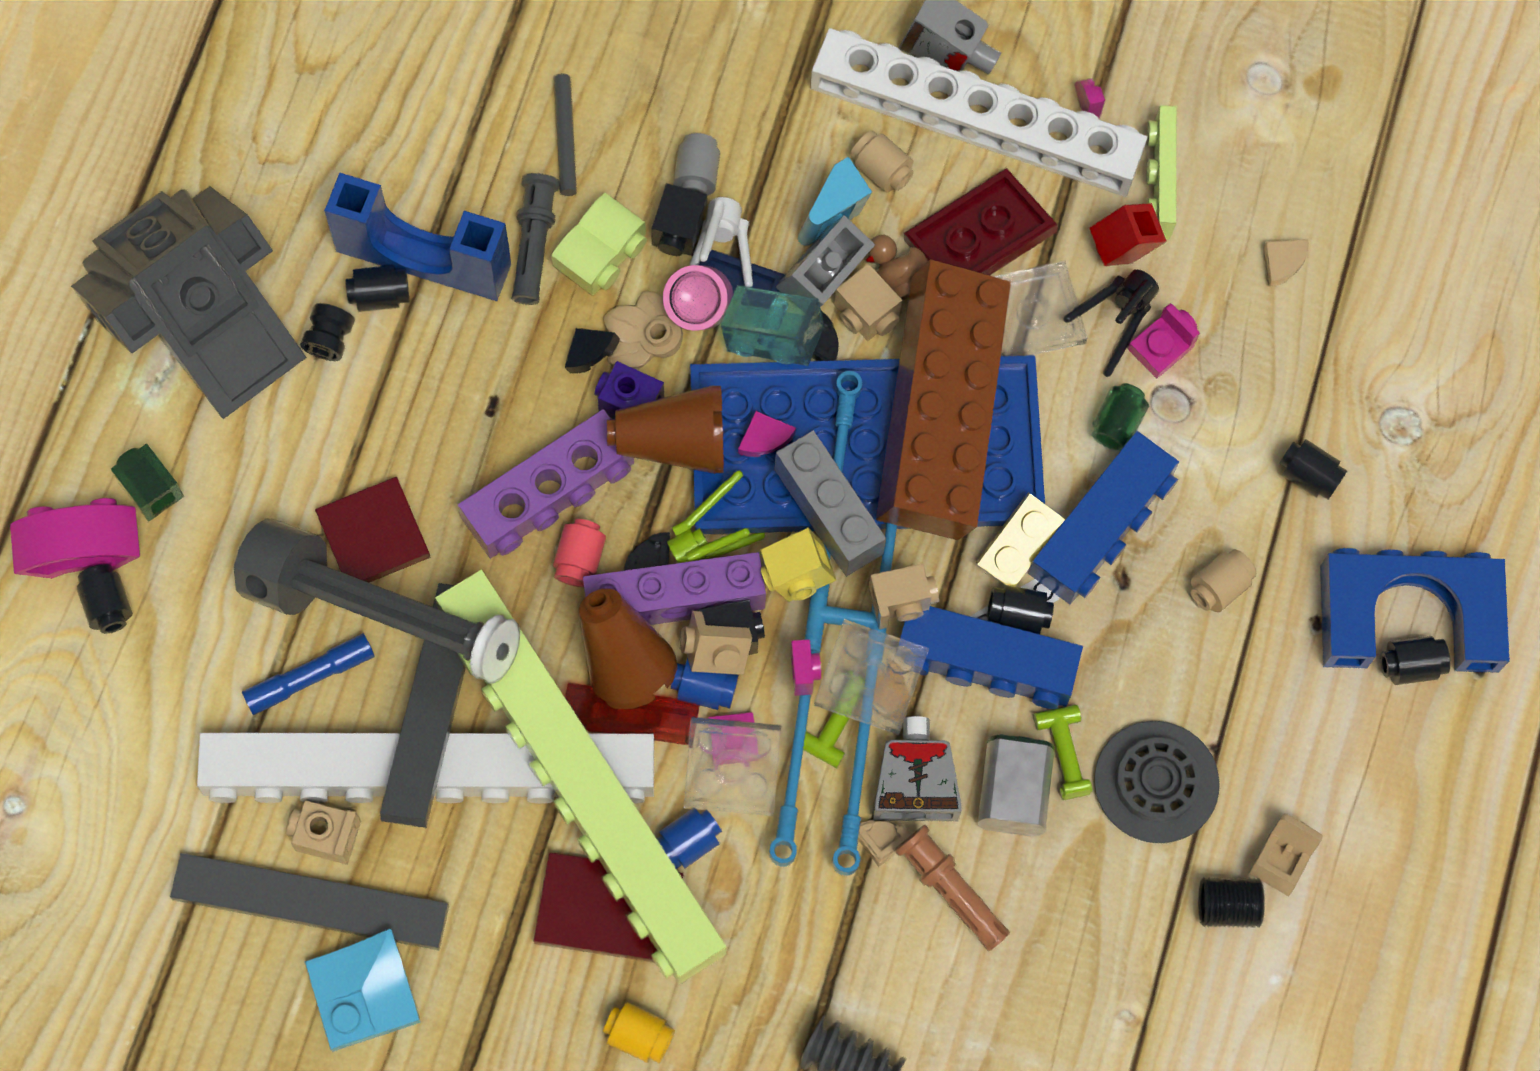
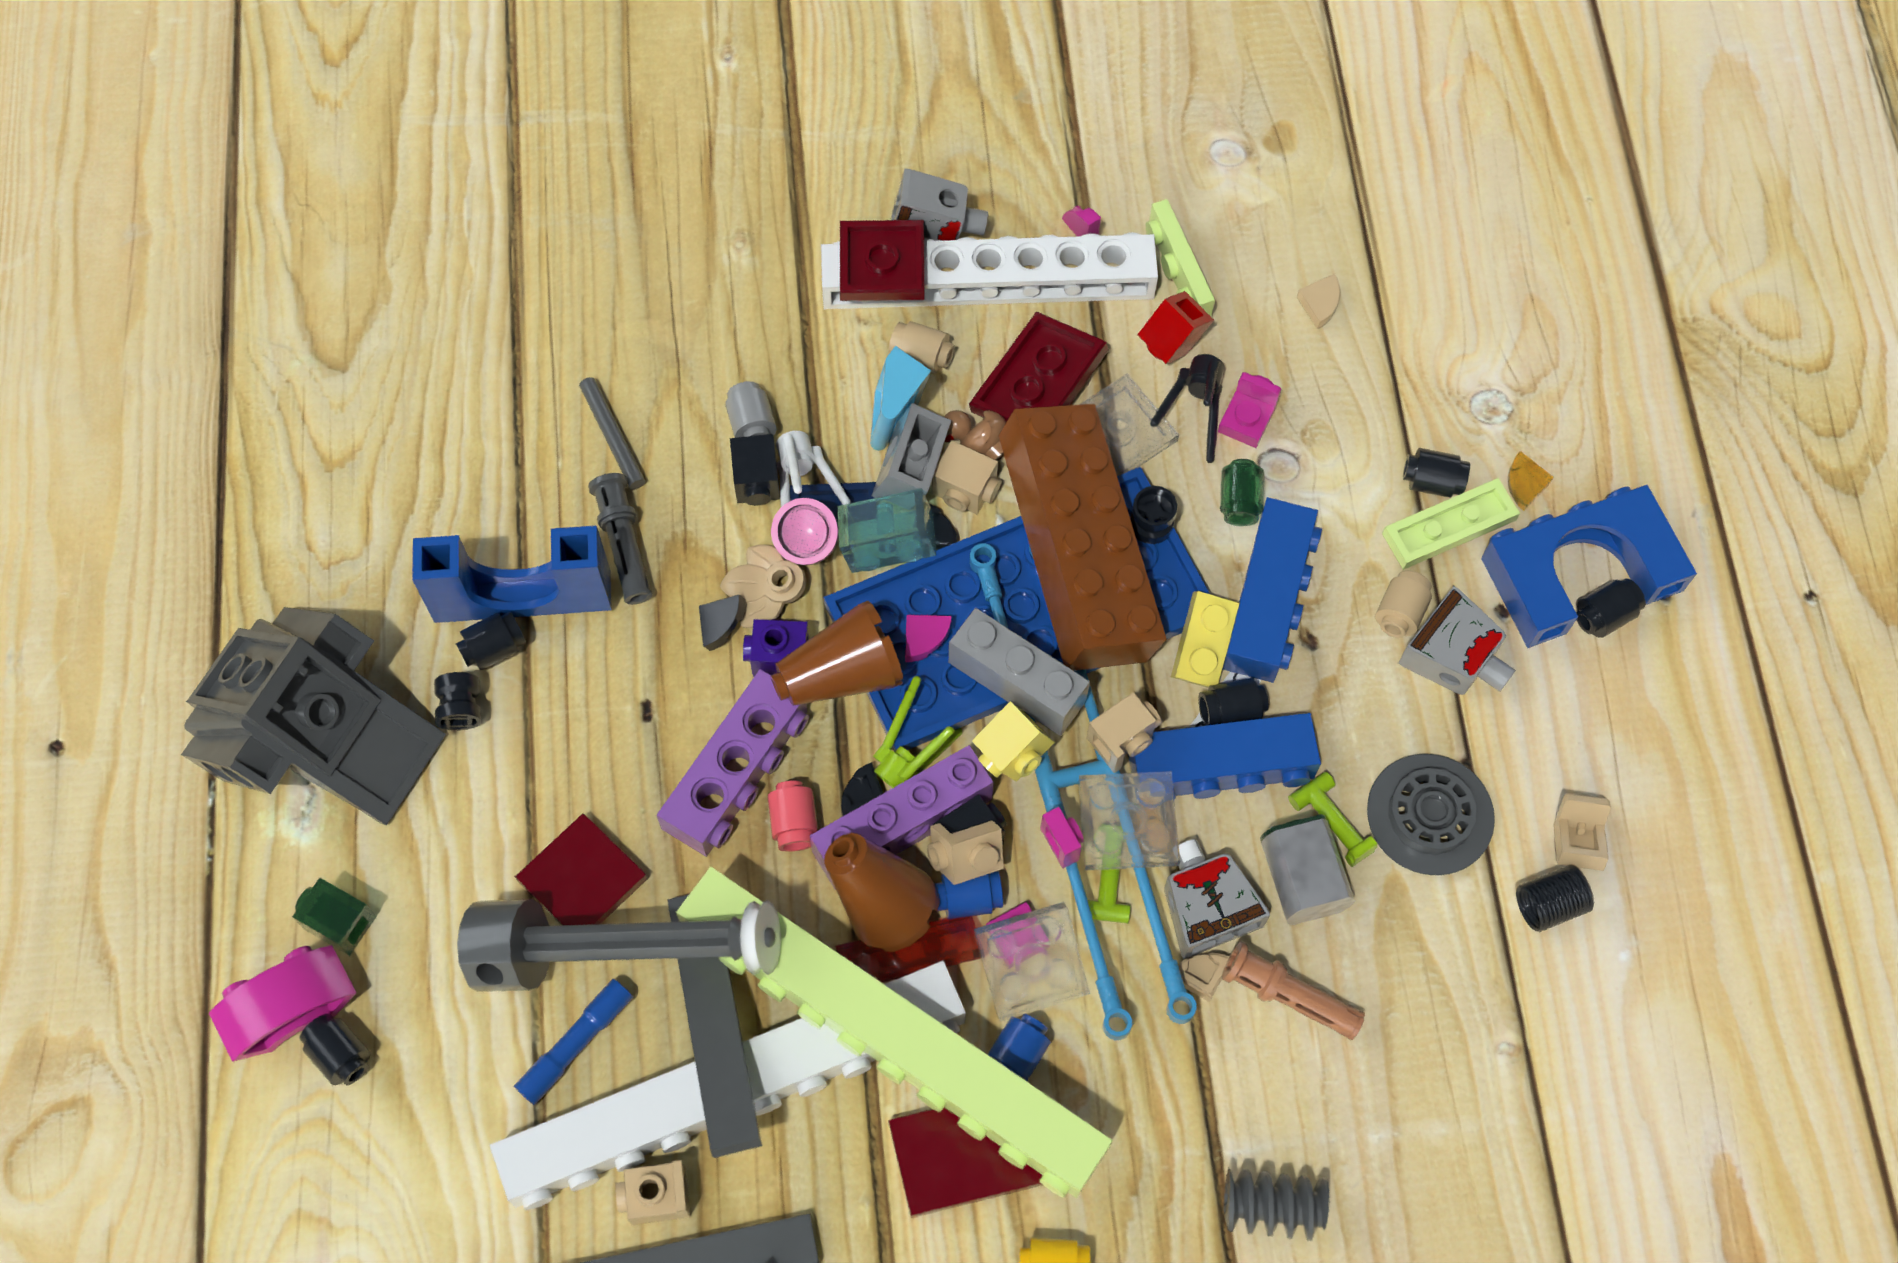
camera: 20 degrees left, 5 degrees down
(600, 245) = (688, 520): yellowish green brick -> none
(878, 65) = (882, 260): none -> dark red tile
(1027, 398) = (1155, 504): none -> black wheel
(1253, 639) = (1458, 646): none -> light grey torso
(1304, 522) = (1450, 523): none -> yellowish green plate
(1398, 510) = (1526, 480): none -> clear yellow tile

